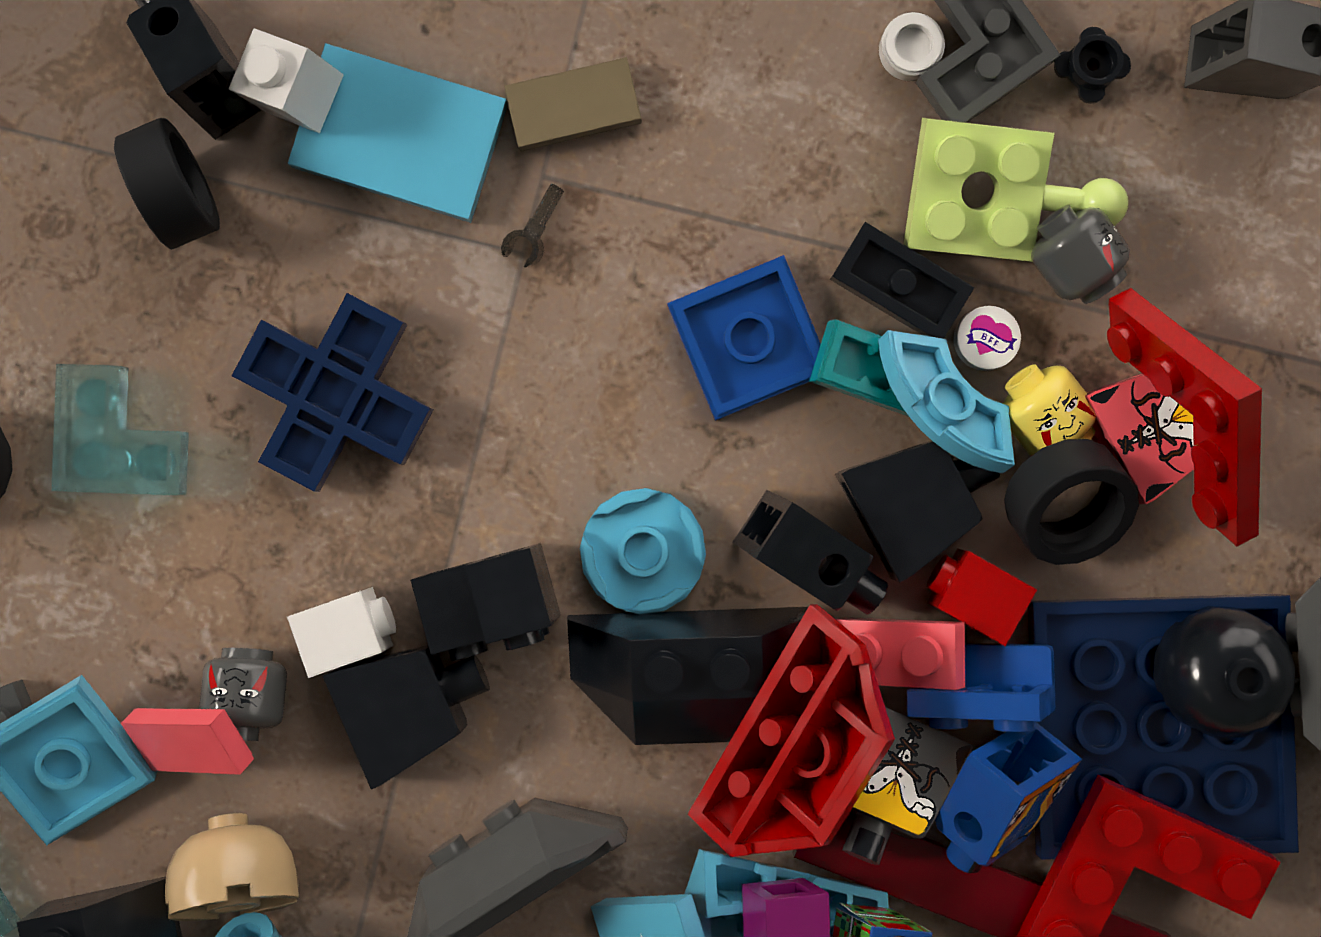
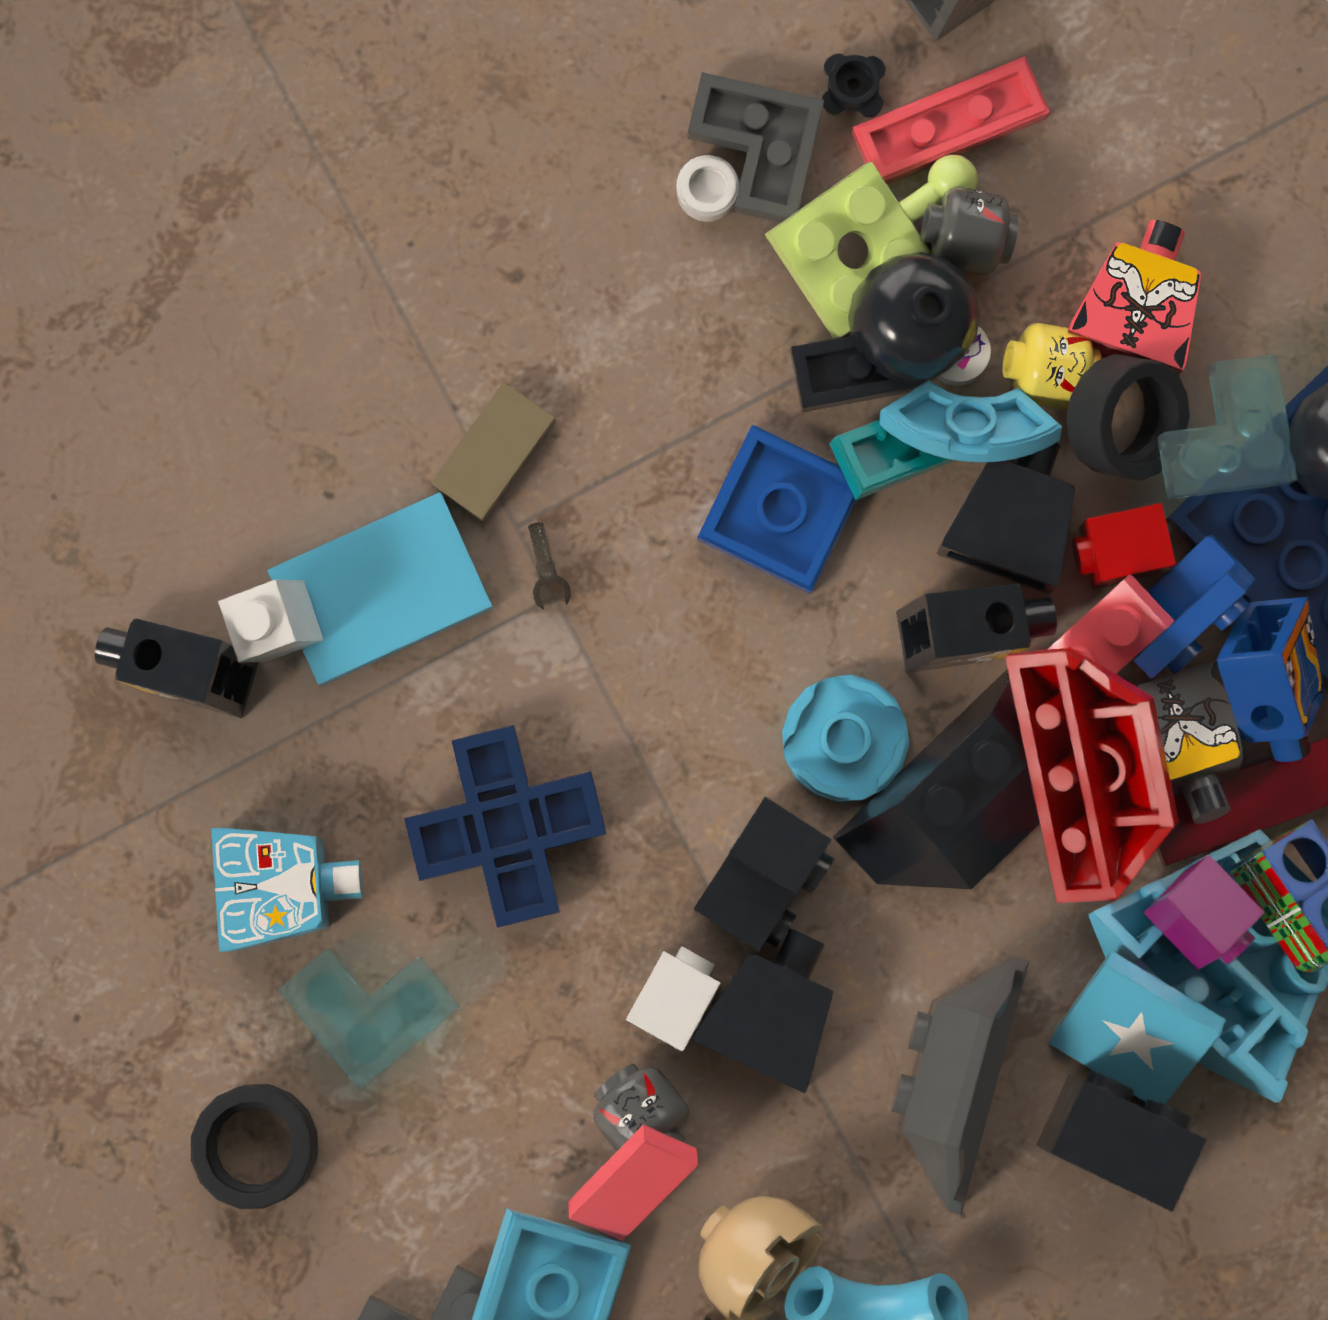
camera: 35 degrees left, 5 degrees down
(122, 284) = (275, 886): none -> medium azure torso
(166, 183) = (247, 776): black tyre -> none
(979, 281) = (914, 317): none -> black cylinder
(1142, 159) = (952, 121): none -> coral tile
(1142, 602) = (1246, 445): none -> clear light blue plate
(1223, 408) = (1161, 251): red plate -> none

